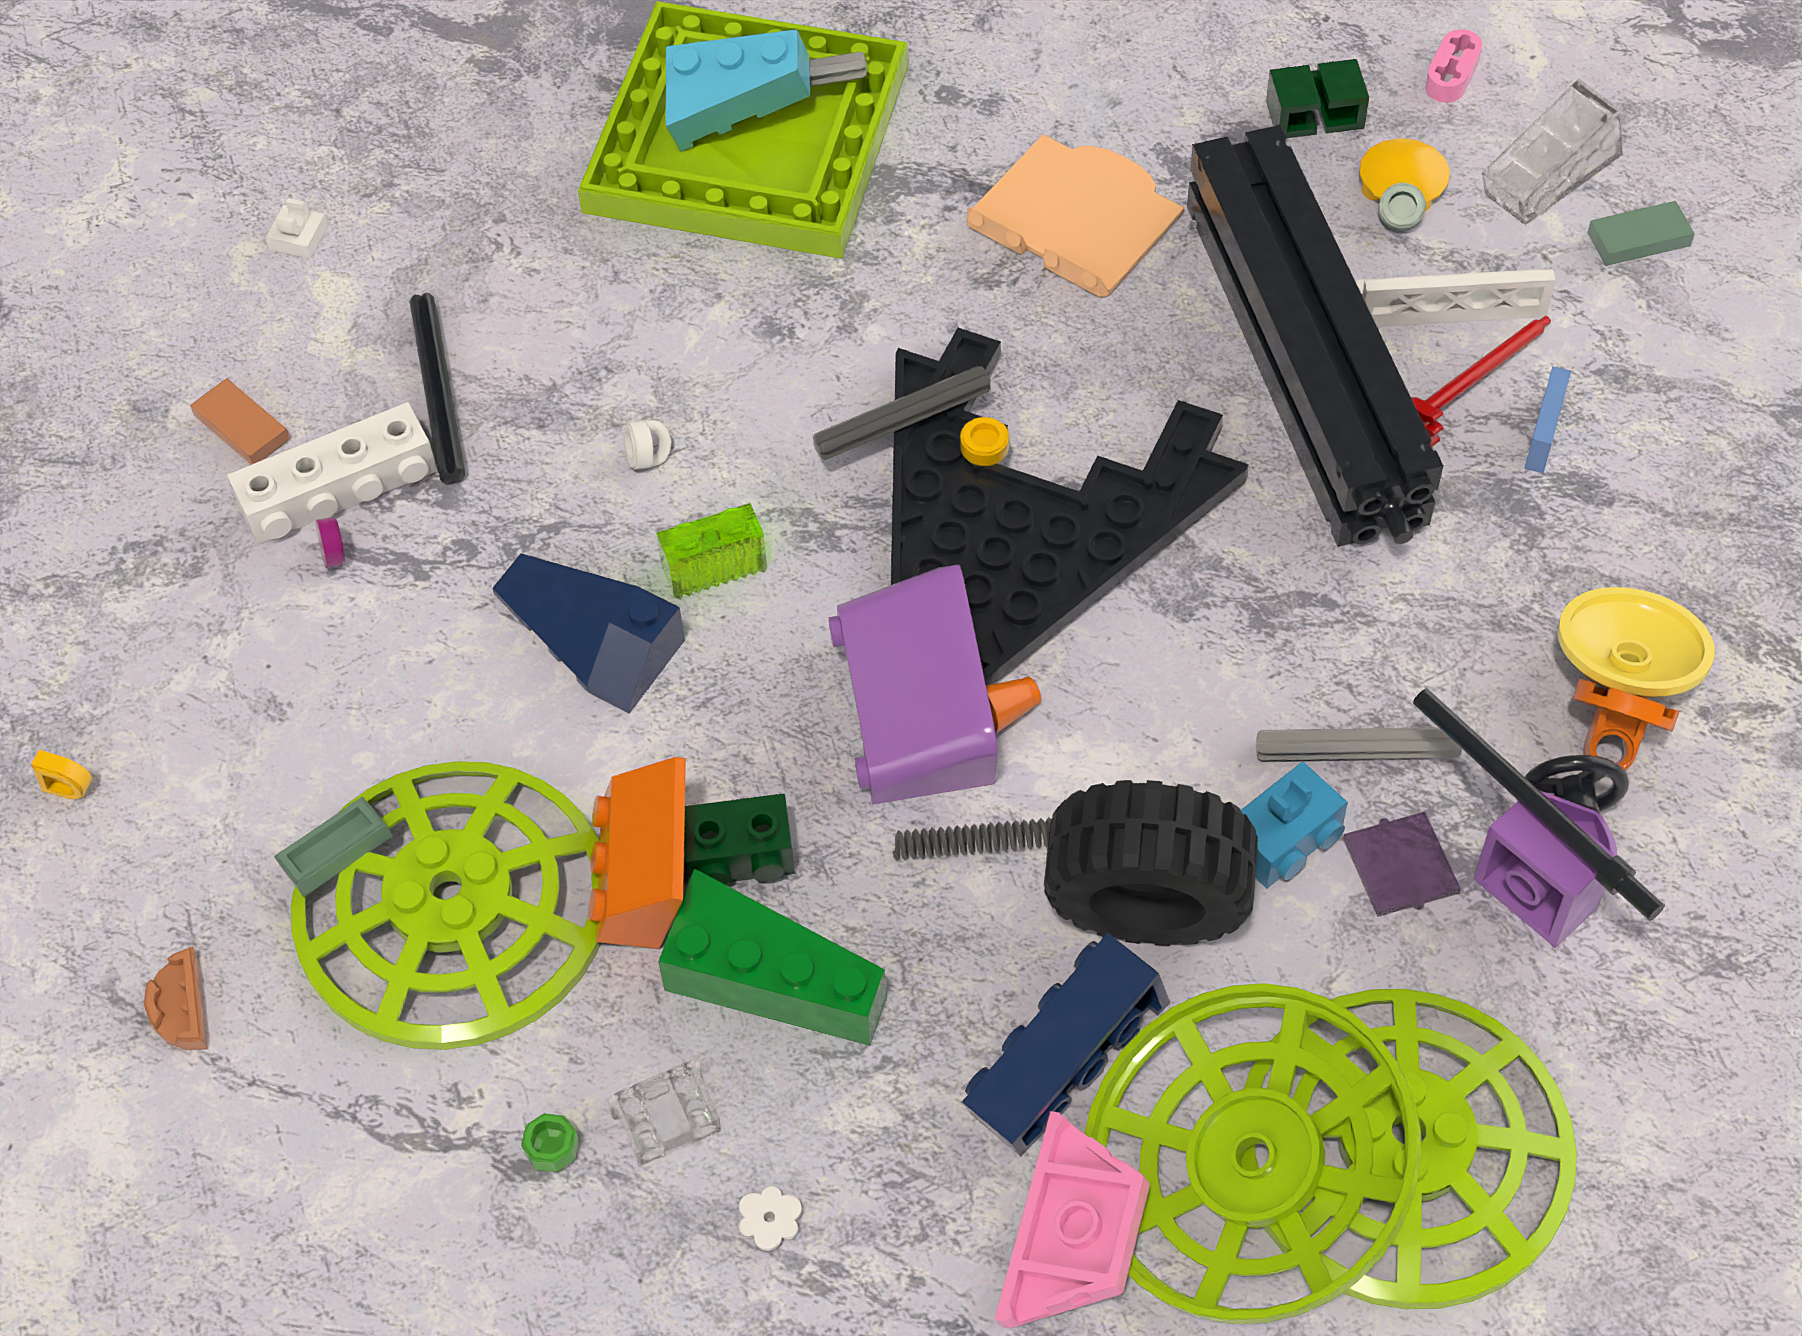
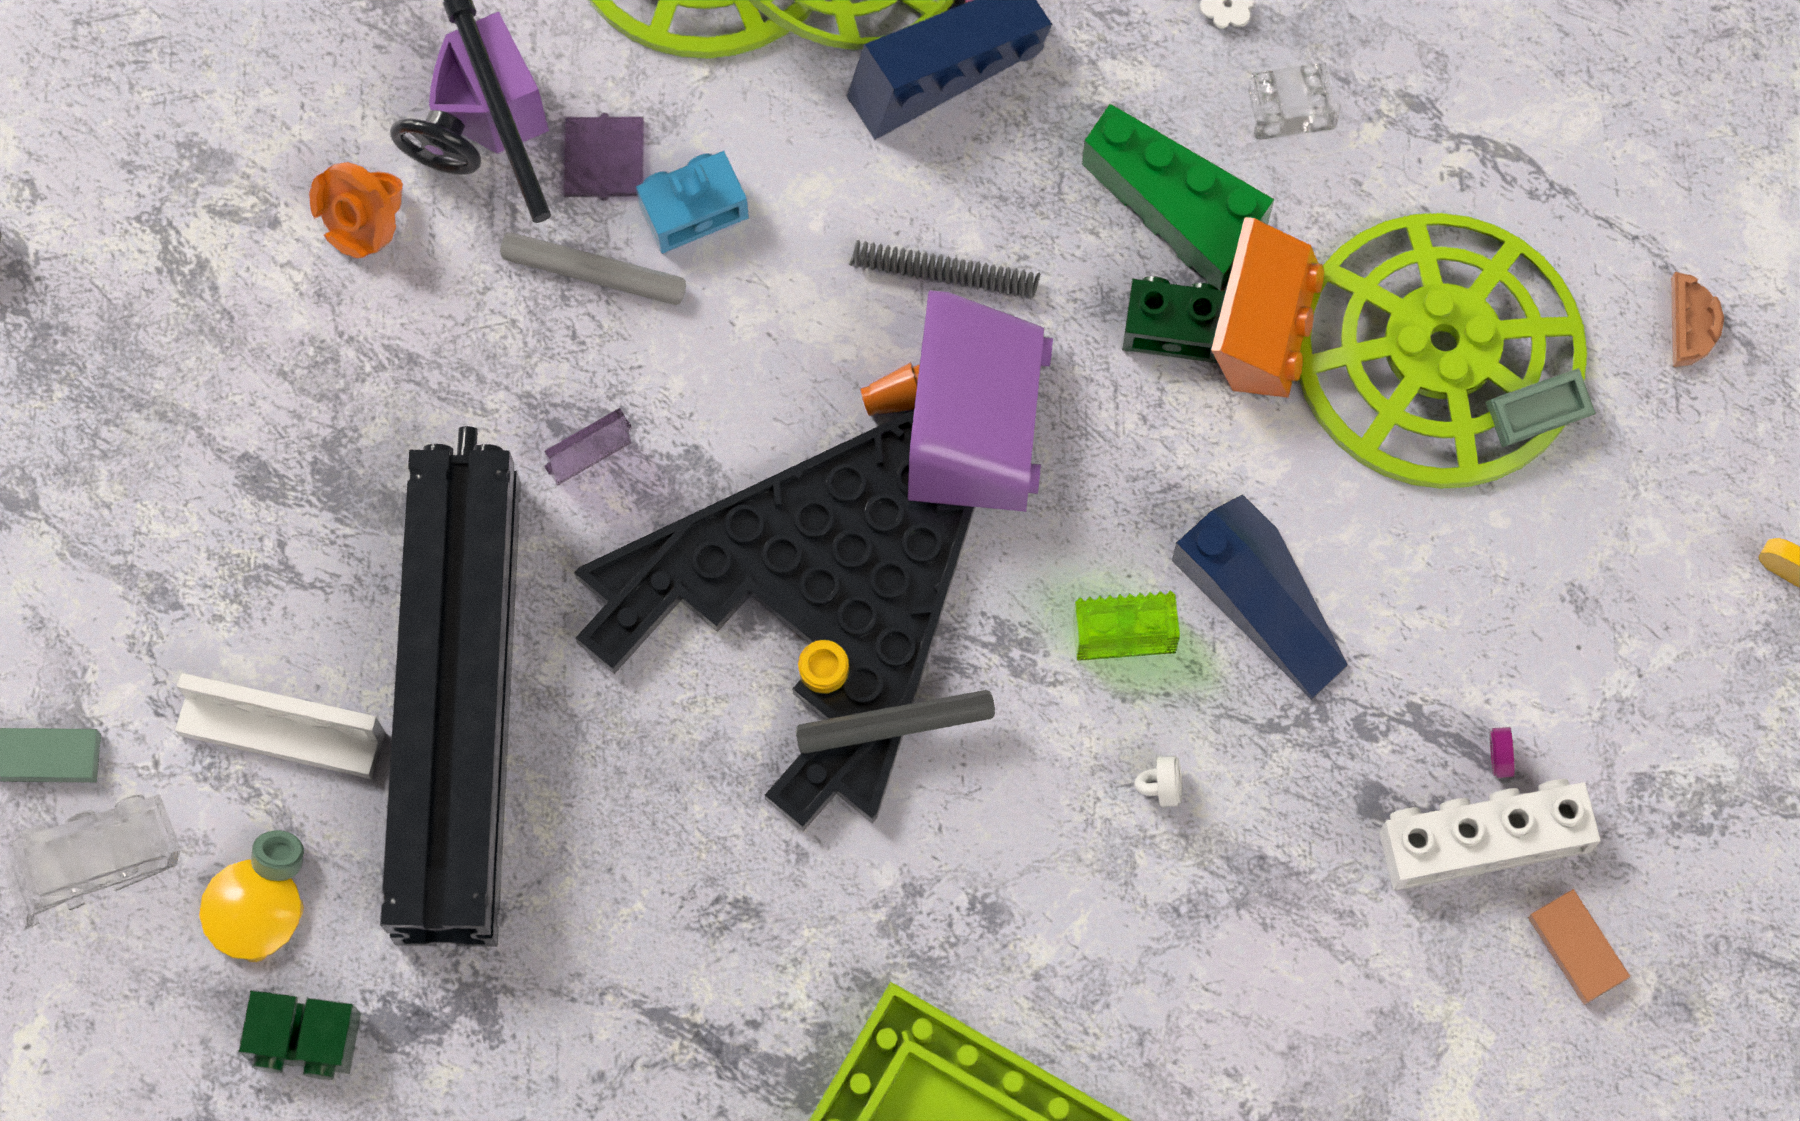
camera: 165 degrees left, 15 degrees up
(437, 388) = (1363, 931): black axle -> none
(550, 1142) = (1392, 106): bright green tile -> none
(1078, 211) = (618, 971): light nougat piece -> none
(1151, 863) = (835, 138): black tyre -> none
(1282, 559) = (588, 446): none -> clear purple piece
(1430, 408) = (381, 590): red piece -> none
(1460, 67) = (115, 1039): bright pink beam -> none
(1547, 419) = (262, 542): medium blue tile -> none
(1635, 642) = (283, 261): light yellow dish -> none

